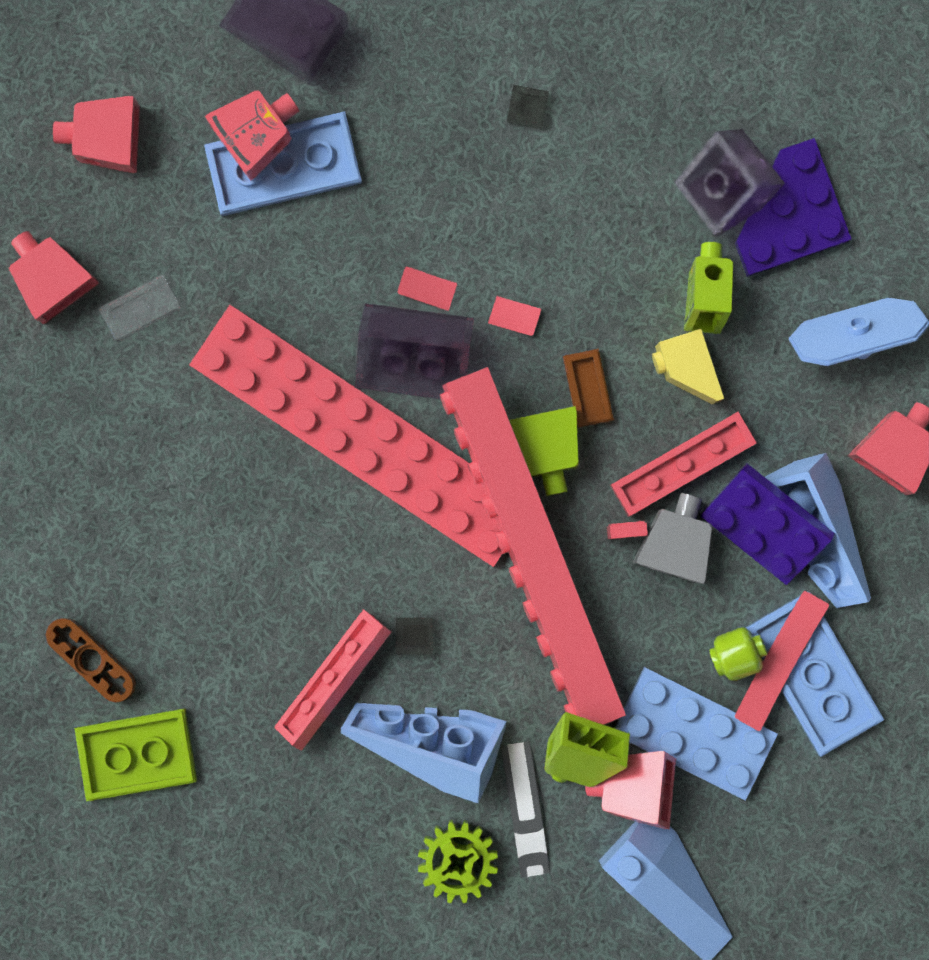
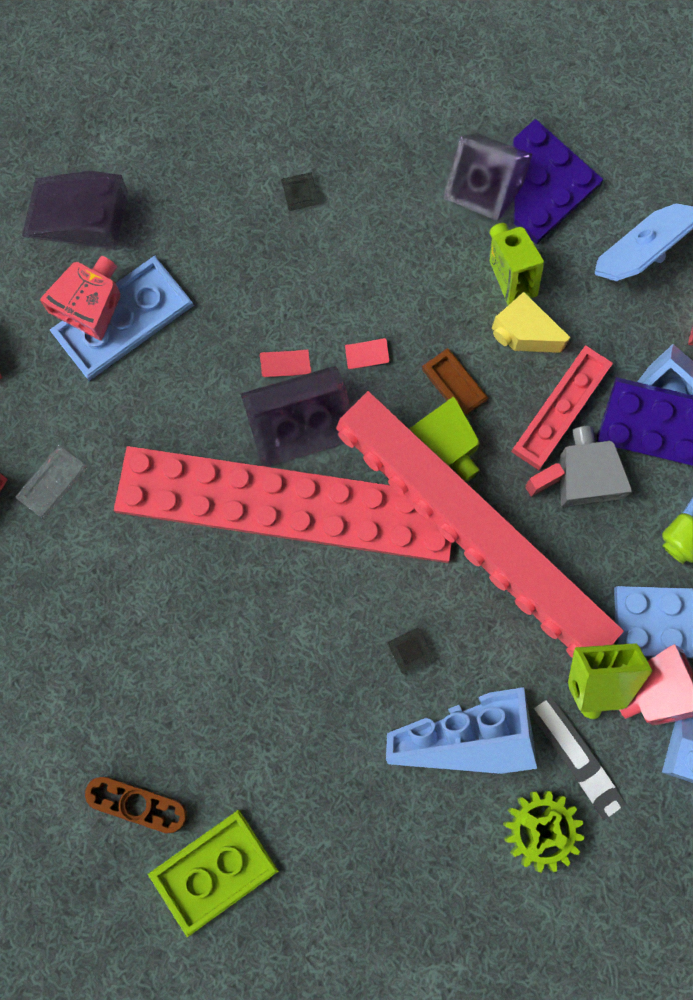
camera: 25 degrees left, 10 degrees down
(332, 680) = (358, 721): coral plate -> none

